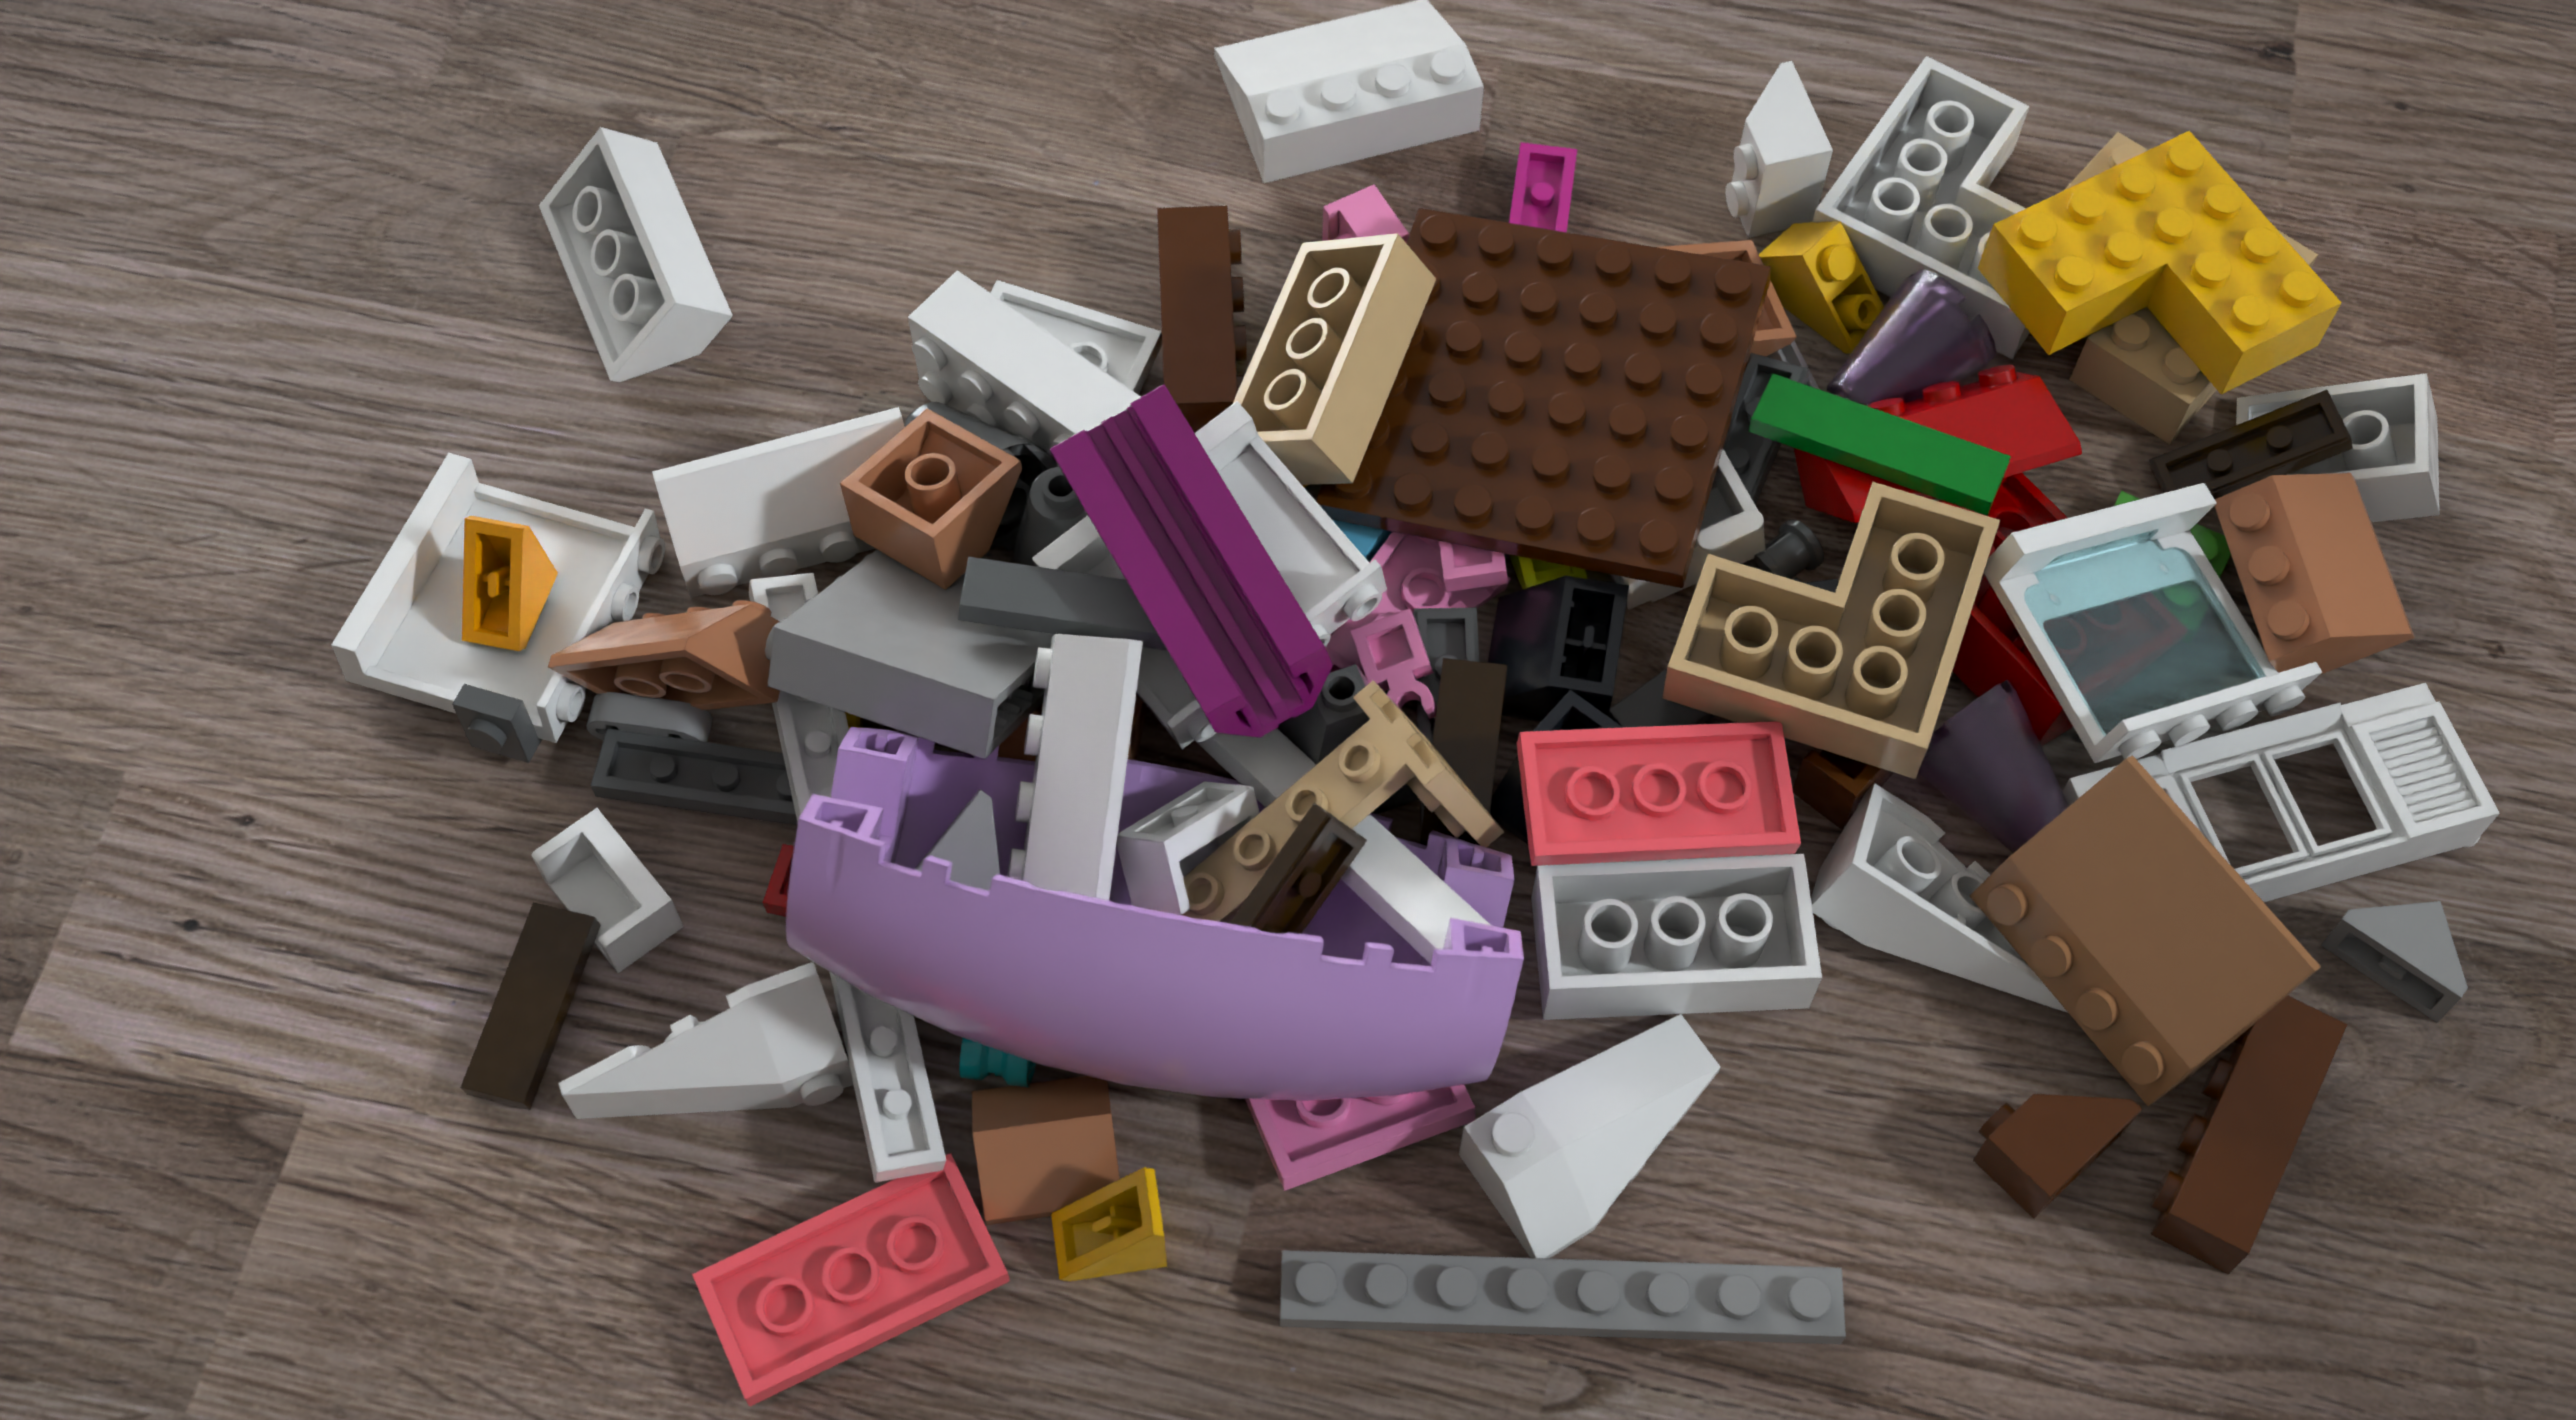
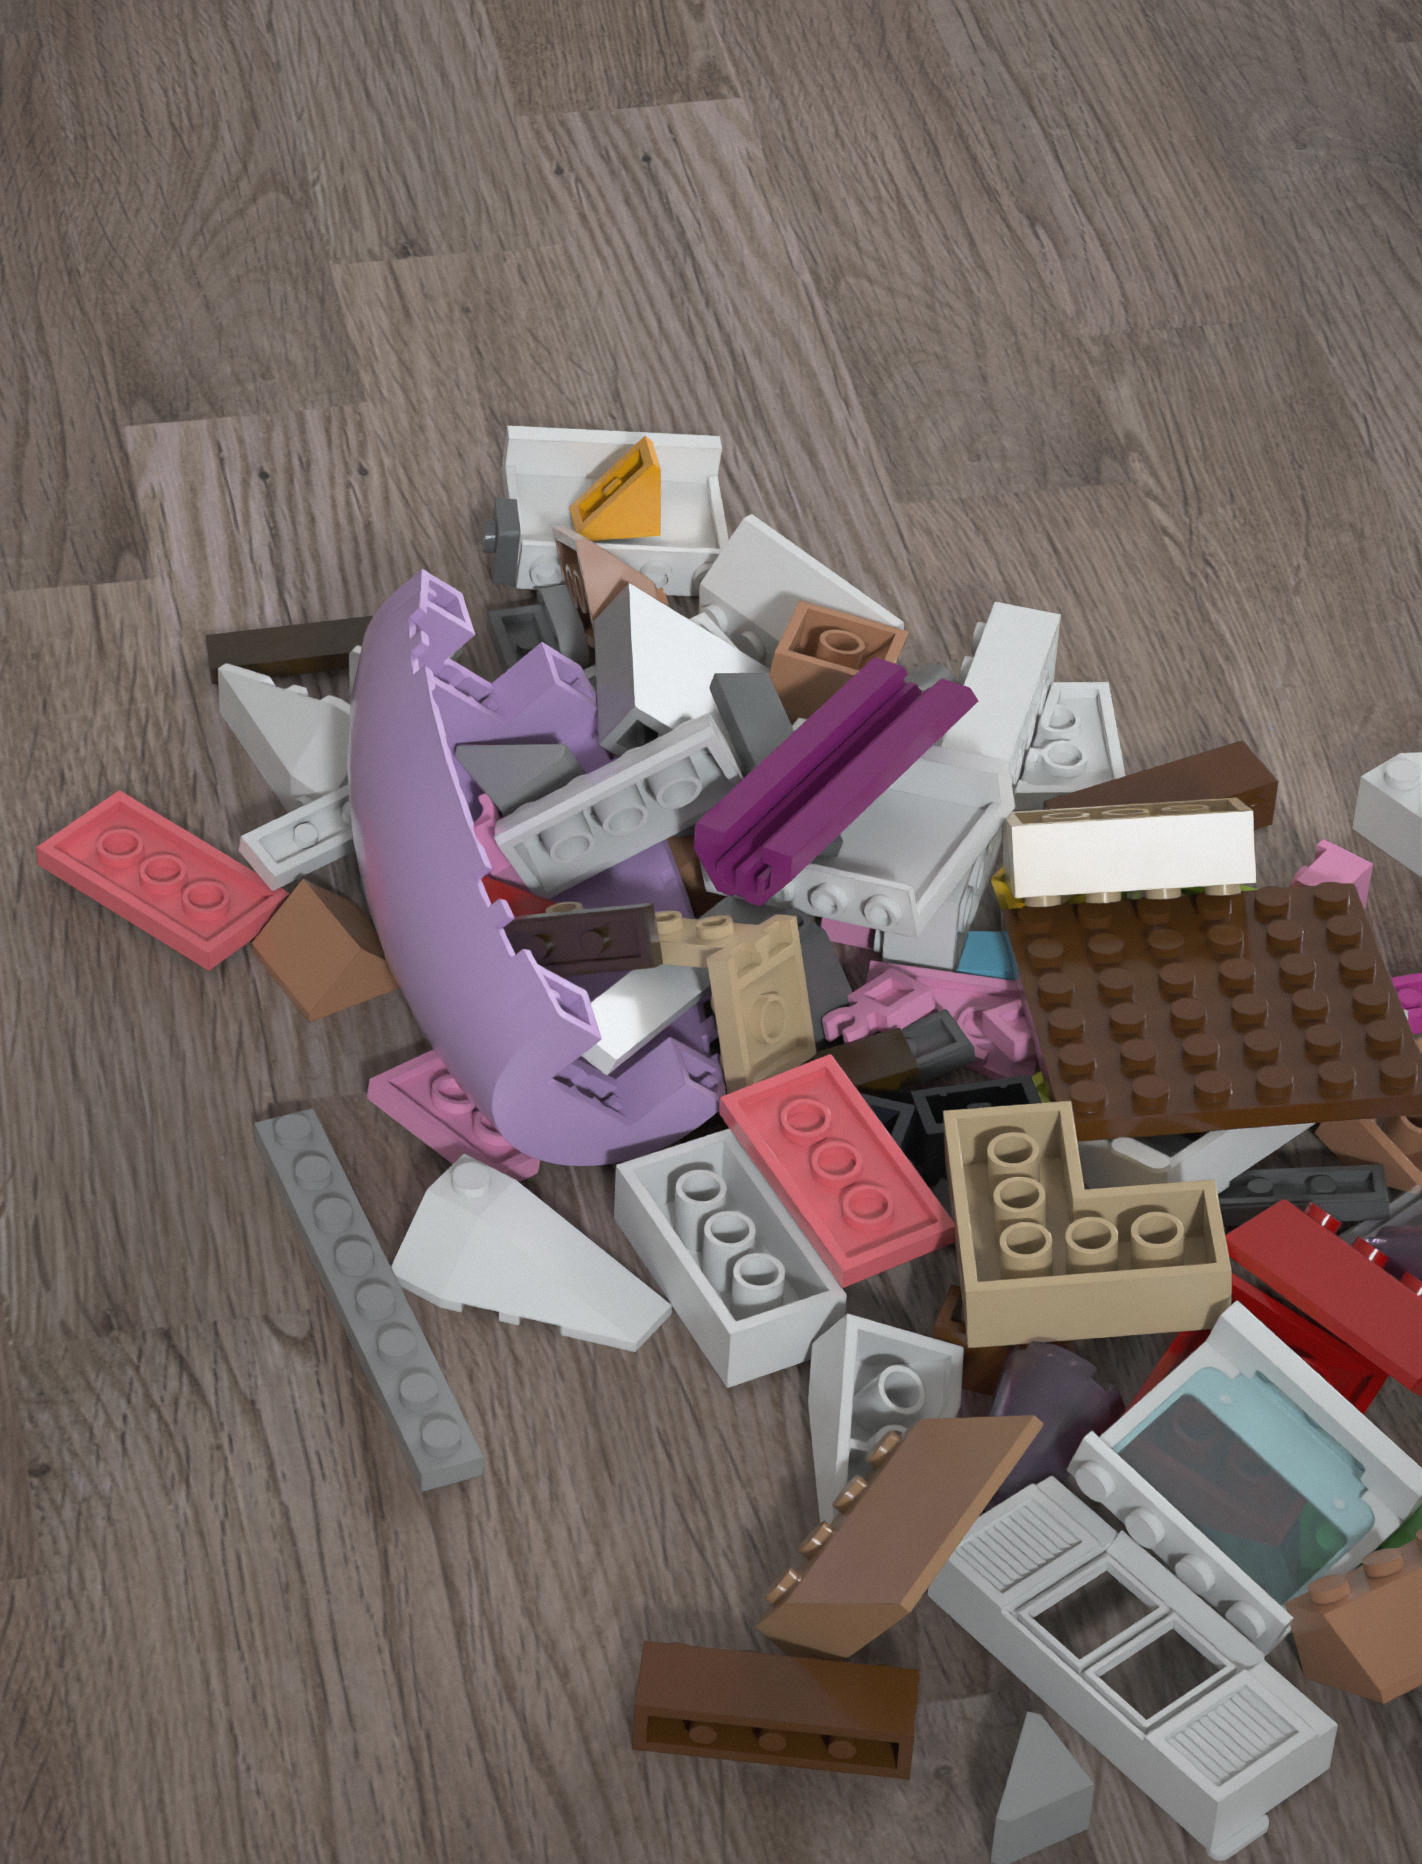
camera: 65 degrees right, 20 degrees down
(633, 256) = (987, 483): white slope -> none
(1111, 1230) = (283, 1013): yellow slope -> none
(1177, 839) = (596, 881): white panel -> none
(1879, 444) = (1305, 1232): green tile -> none
(2049, 1143) = (678, 1572): reddish brown slope -> none

